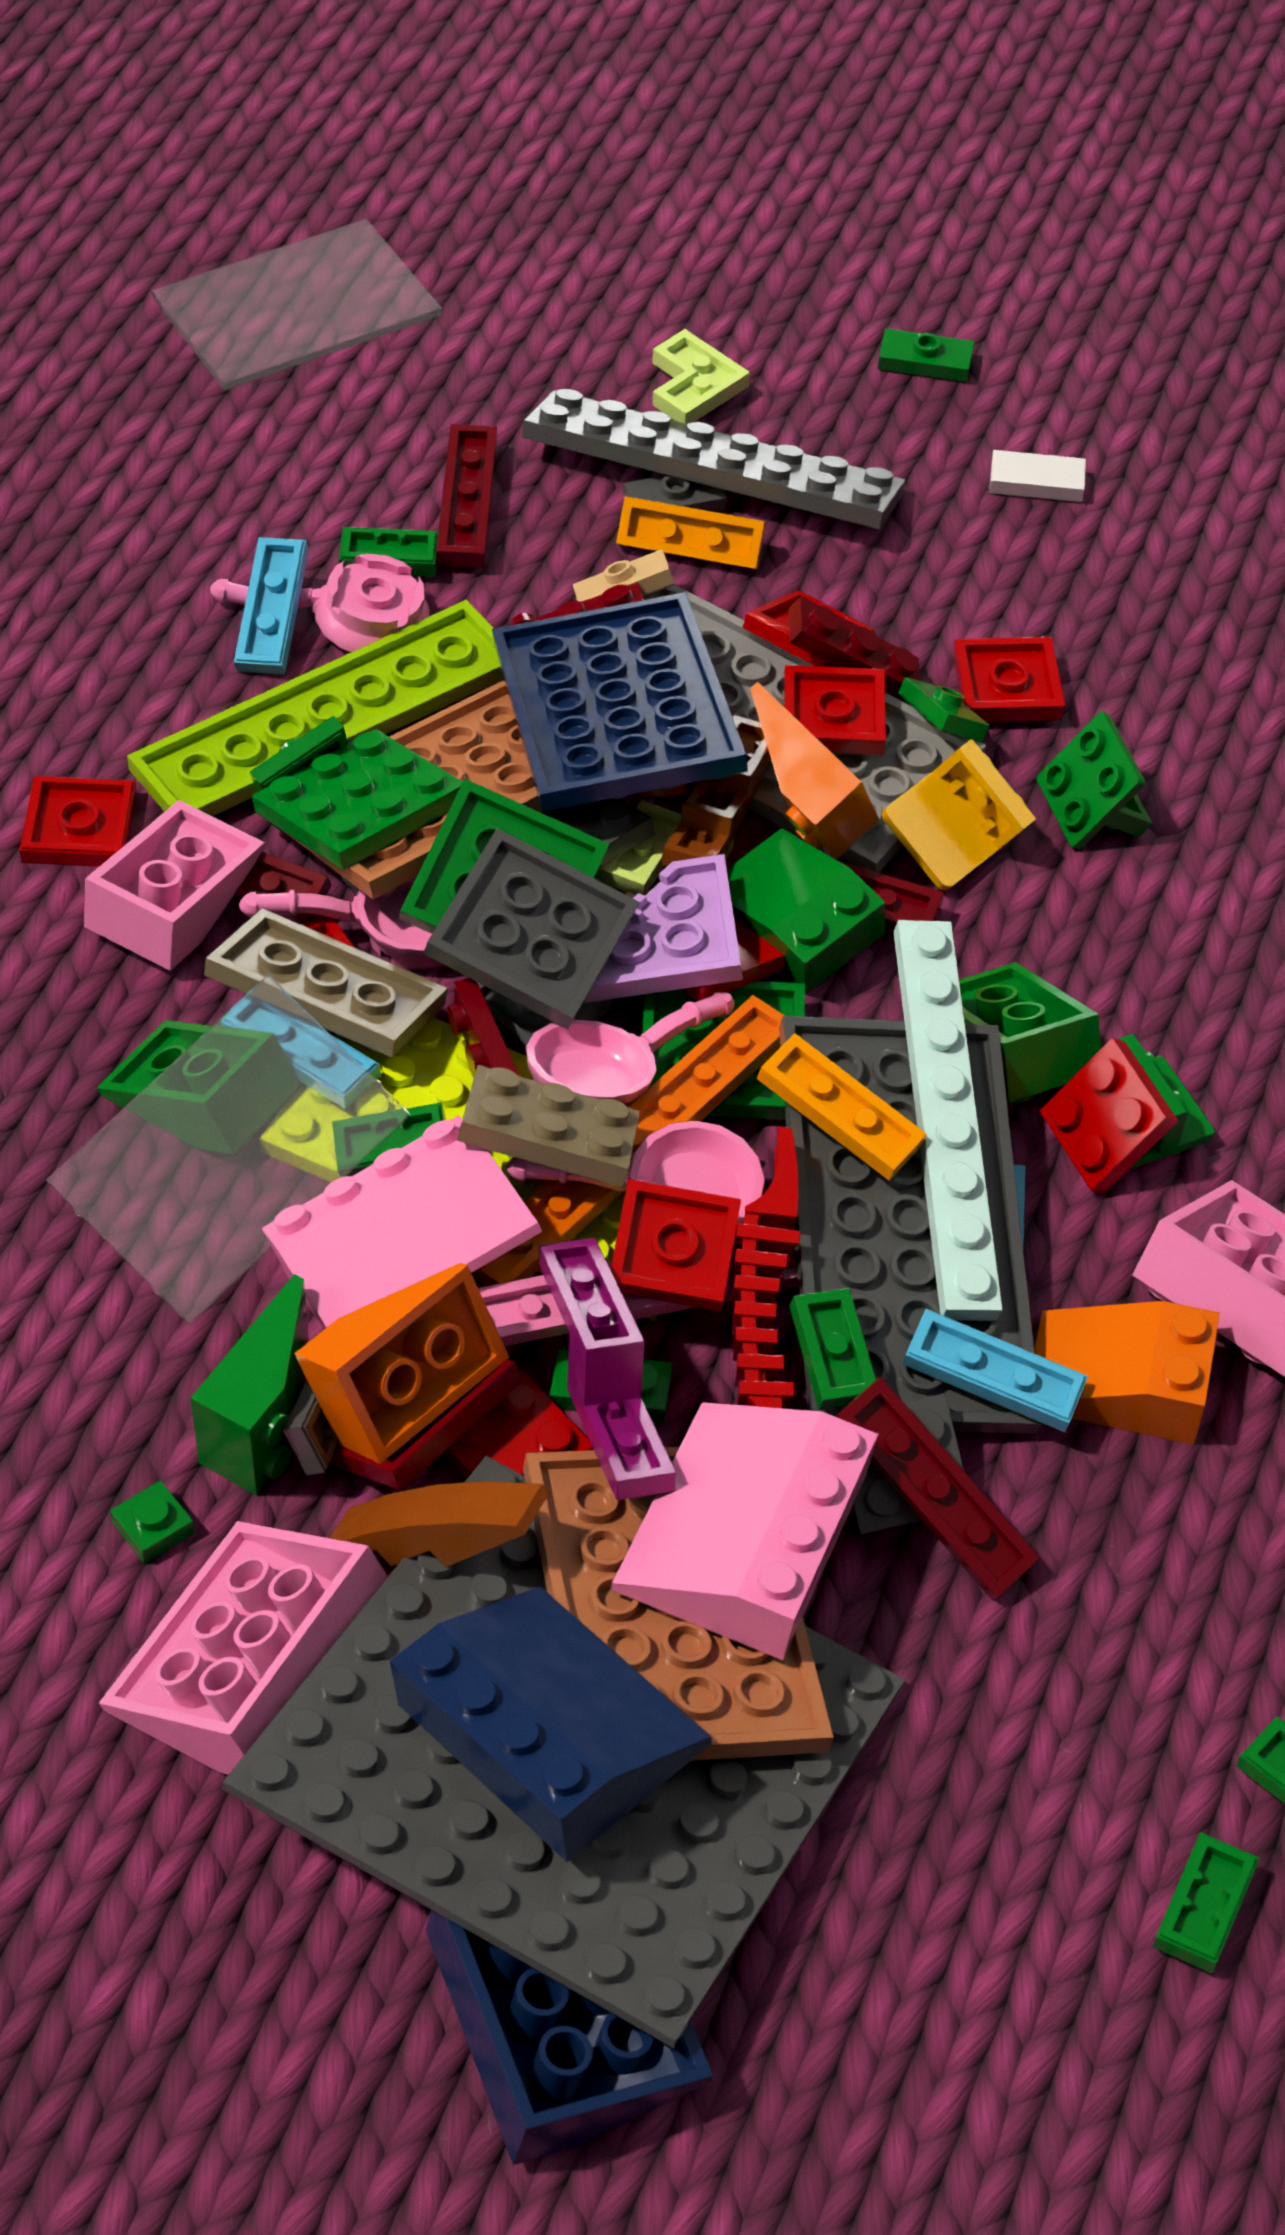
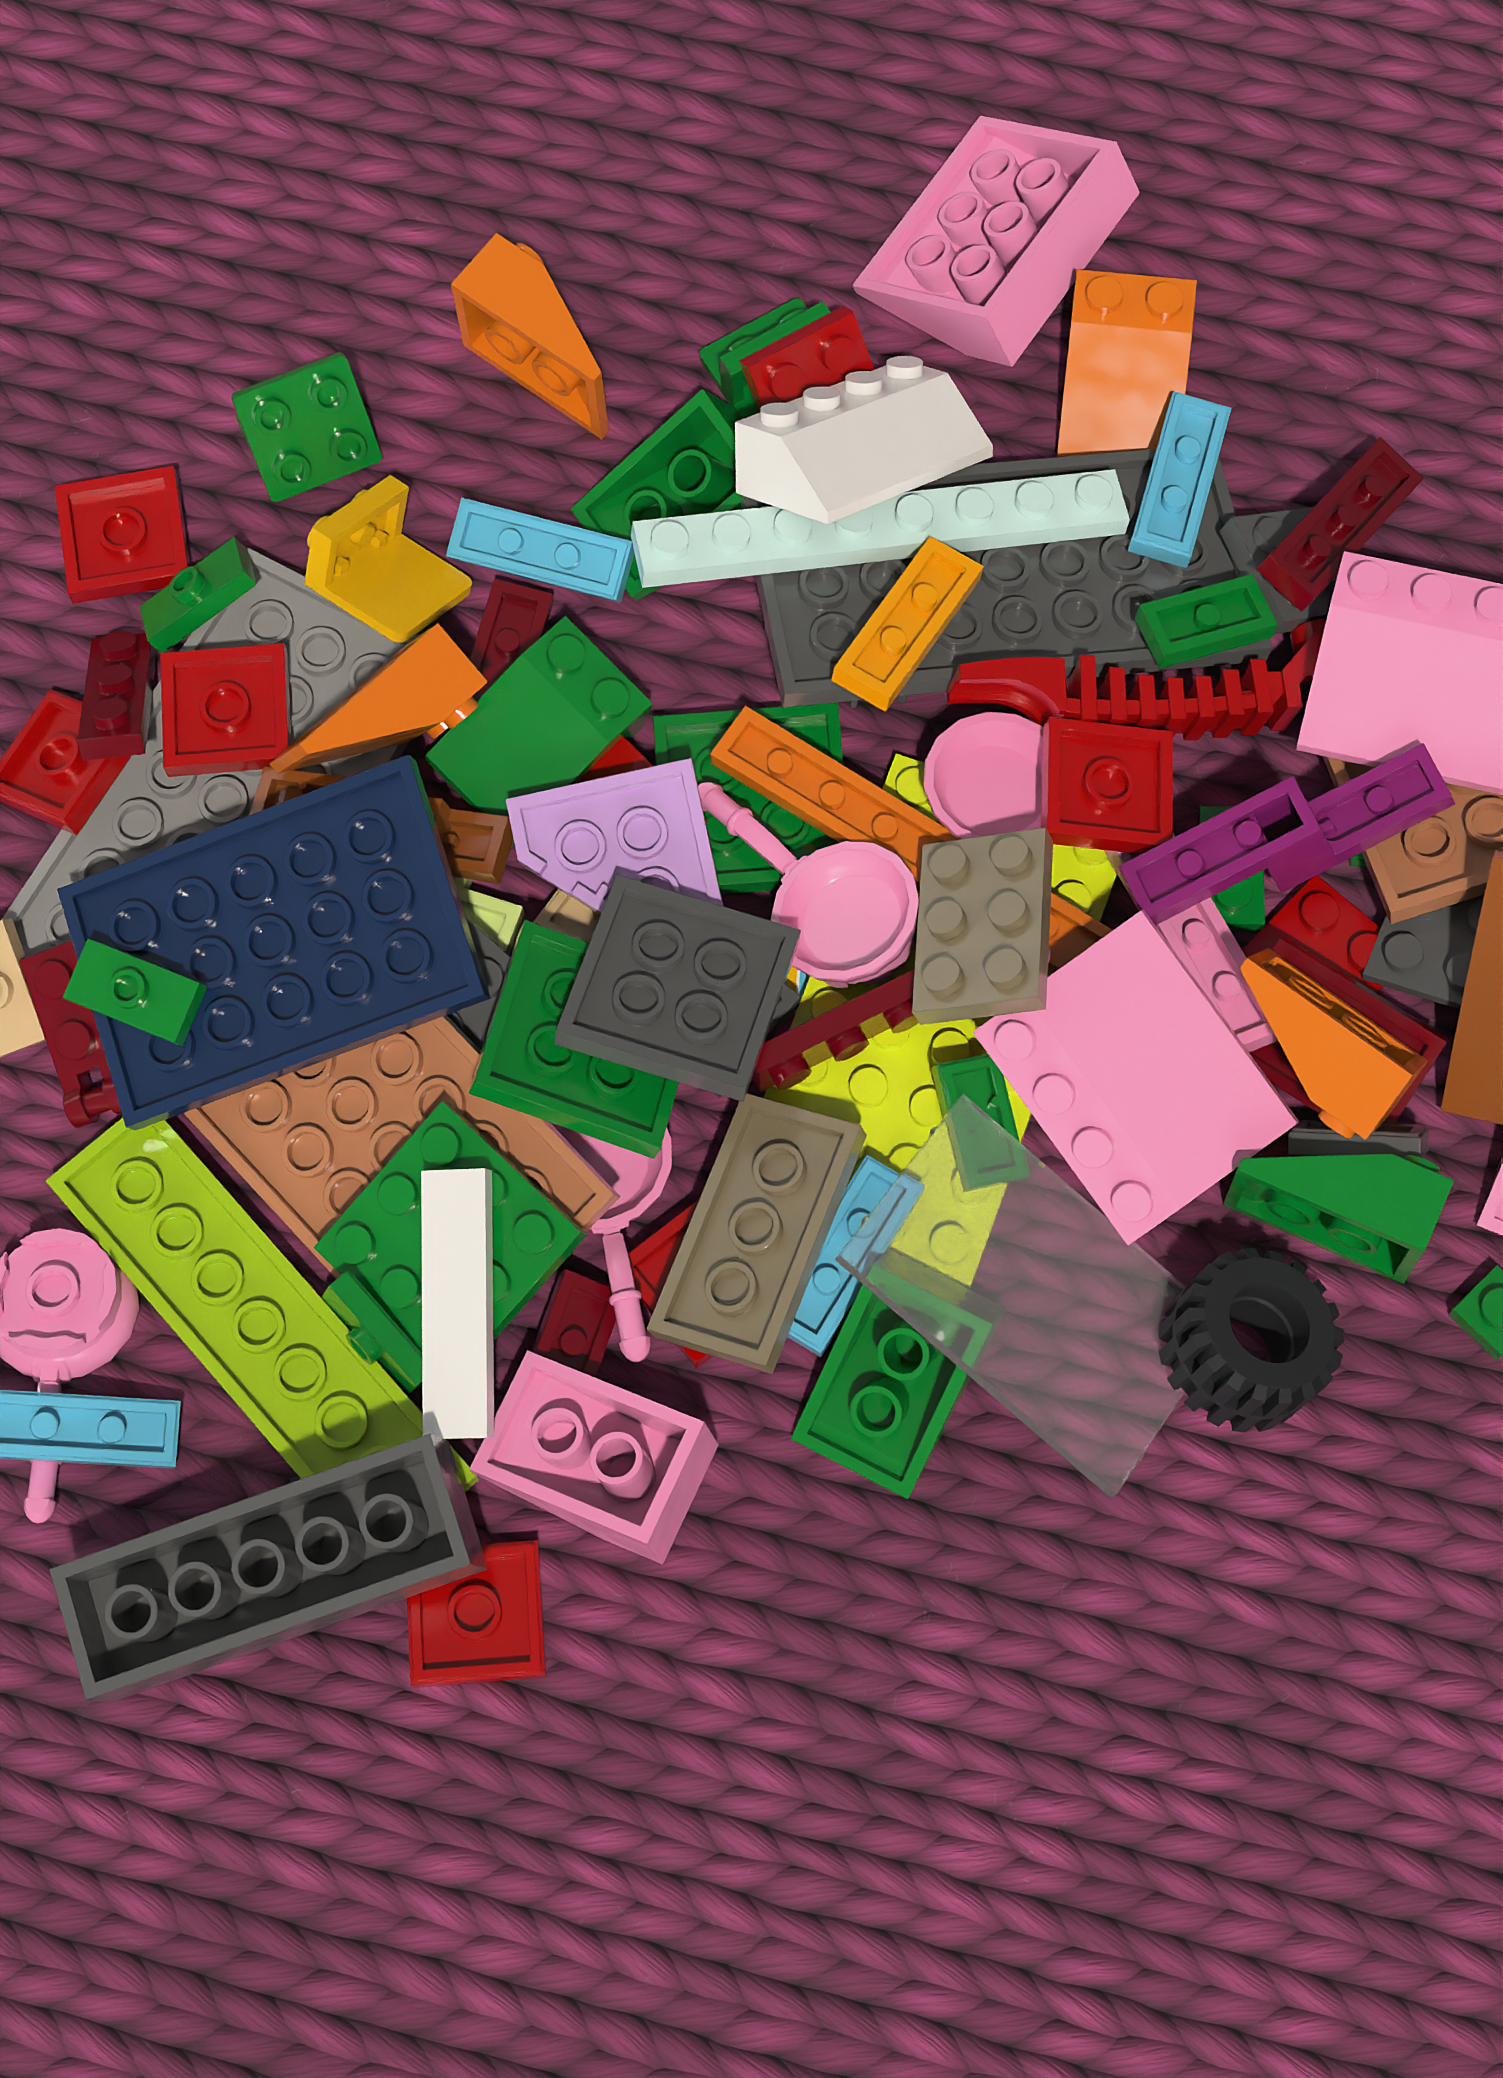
camera: 90 degrees left, 20 degrees up
(130, 683) = (268, 1569): none -> dark grey brick
(169, 1258) = (1281, 1309): none -> black tyre
(300, 782) = (457, 1303): none -> white tile
(589, 623) = (135, 992): none -> green plate
(980, 920) = (541, 550): none -> medium azure tile
(1032, 1107) = (858, 441): none -> white slope
(1170, 926) = (523, 328): none -> orange slope

